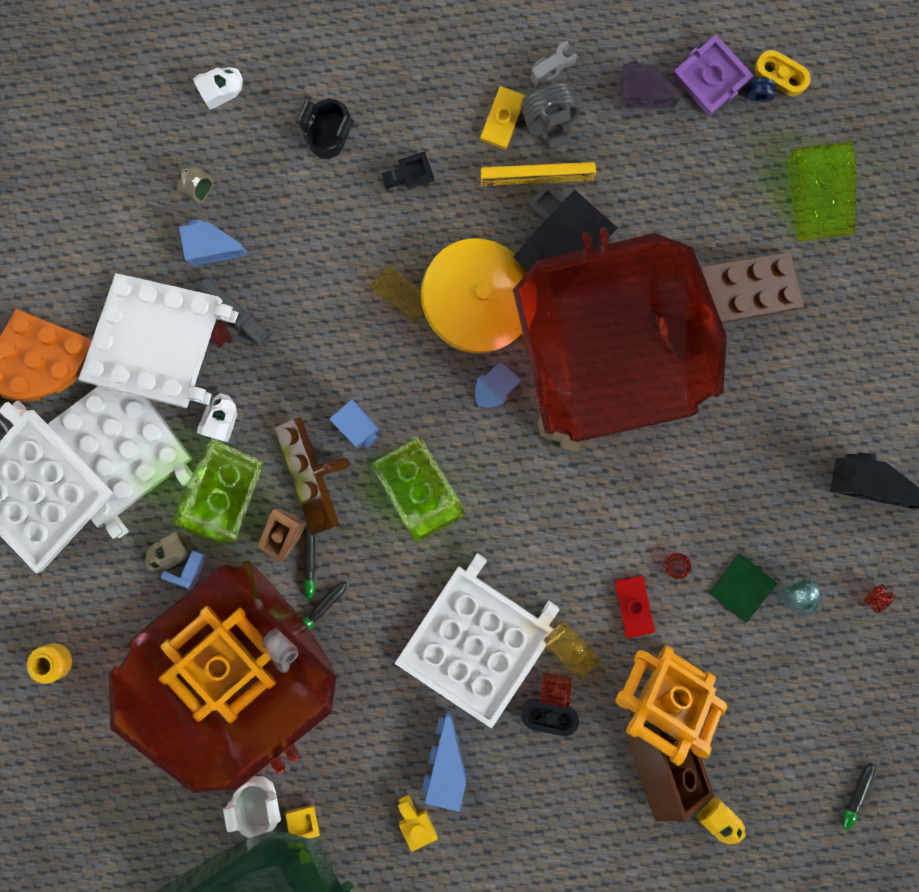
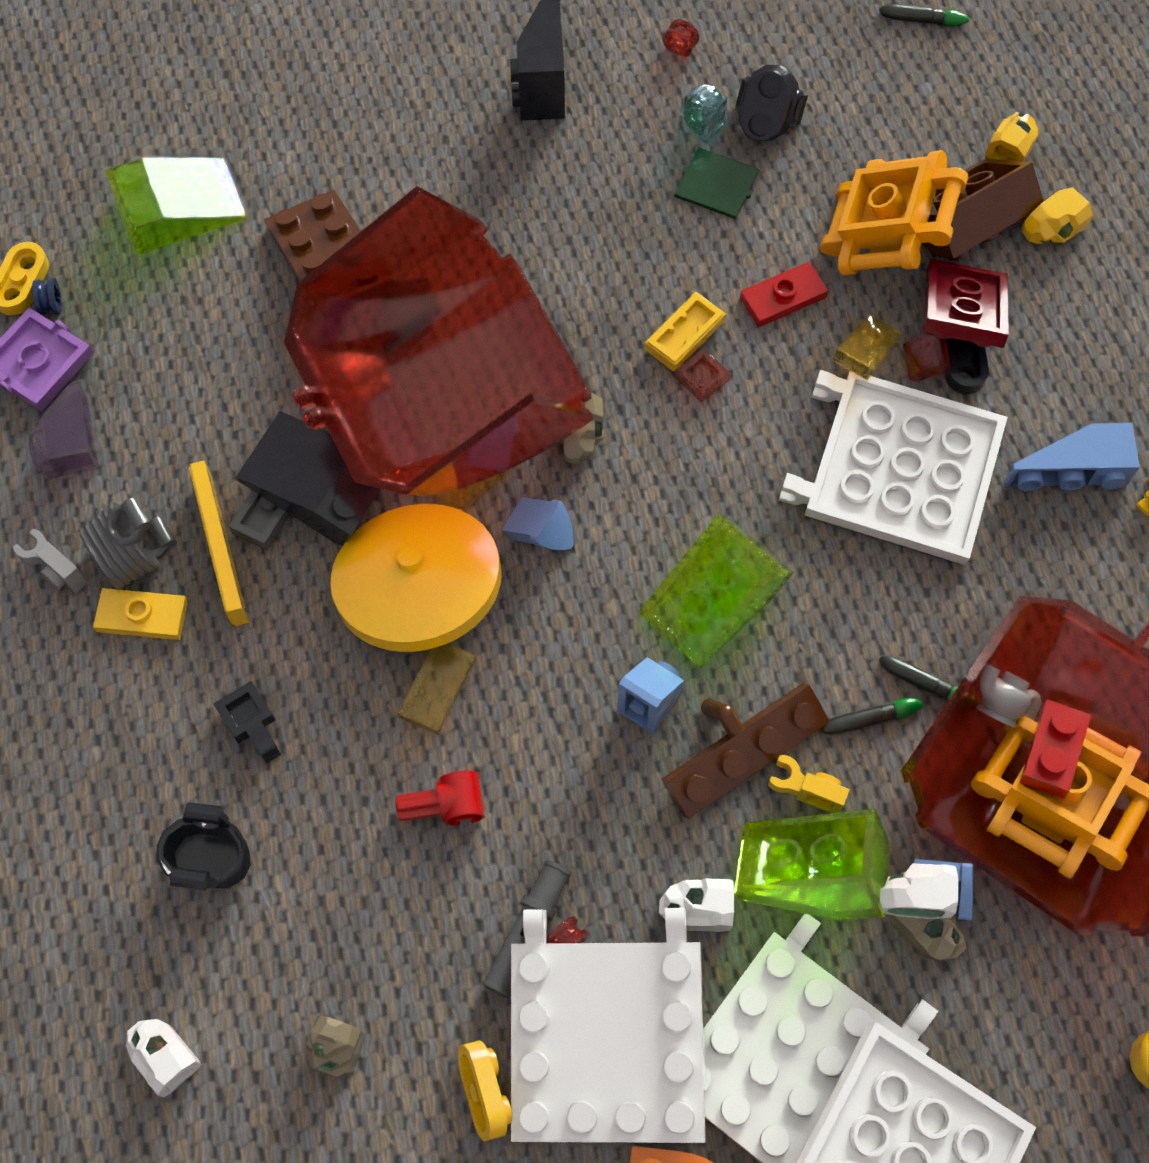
camera: 110 degrees left, 20 degrees down
(135, 264) = (488, 1108): none -> yellow plate
(174, 548) = (921, 892): none -> white rock
(208, 244) = (426, 996): medium blue slope -> none
(236, 664) = (1055, 749): none -> red plate
(262, 515) = (816, 790): none -> yellow plate
(281, 534) = (844, 750): medium nougat slope -> none
(324, 285) = (455, 799): none -> red axle
(584, 529) = (702, 375): none -> clear red tile
(584, 731) = (966, 304): none -> dark red plate
(620, 526) = (685, 331): none -> yellow plate
(642, 827) = (1058, 218): none -> yellow rock
(686, 564) = (721, 264): clear red bush -> none
(796, 644) = (769, 103): none -> black piece

